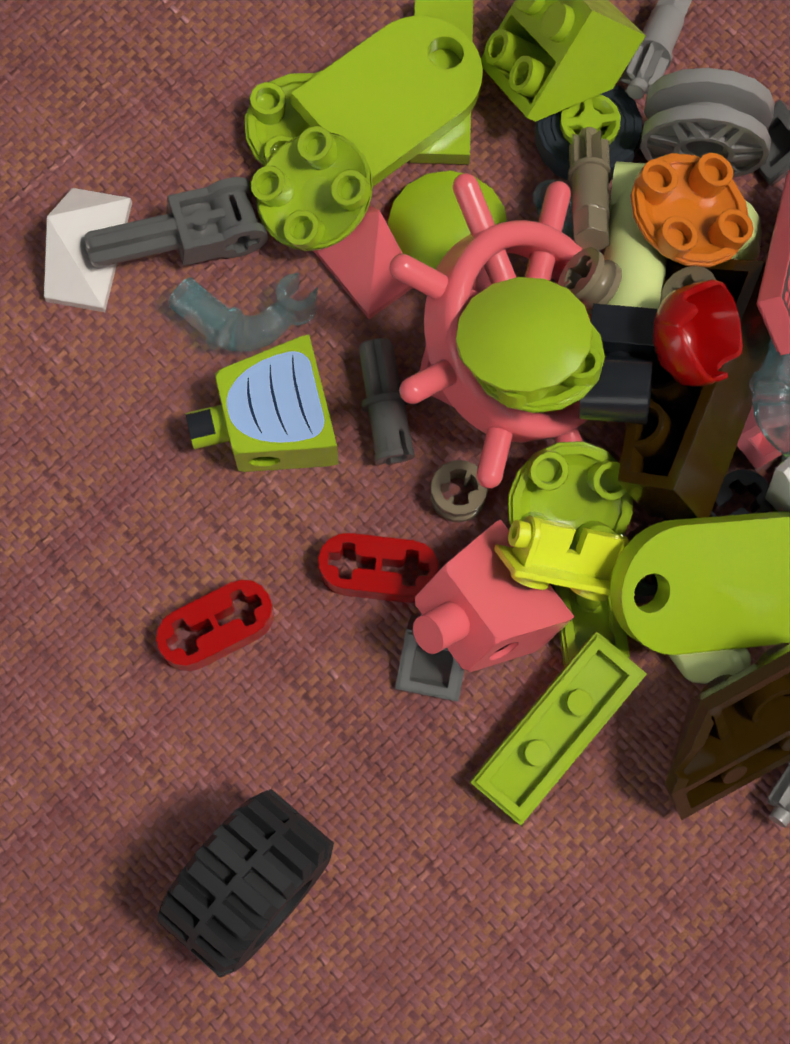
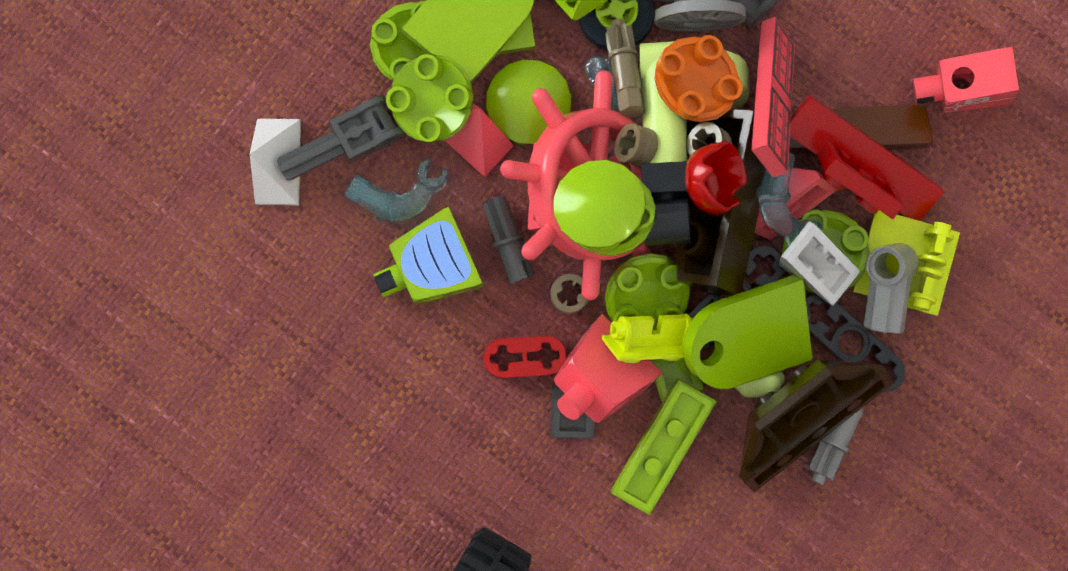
camera: 10 degrees left, 10 degrees up
(208, 612) = (415, 408): red beam -> none

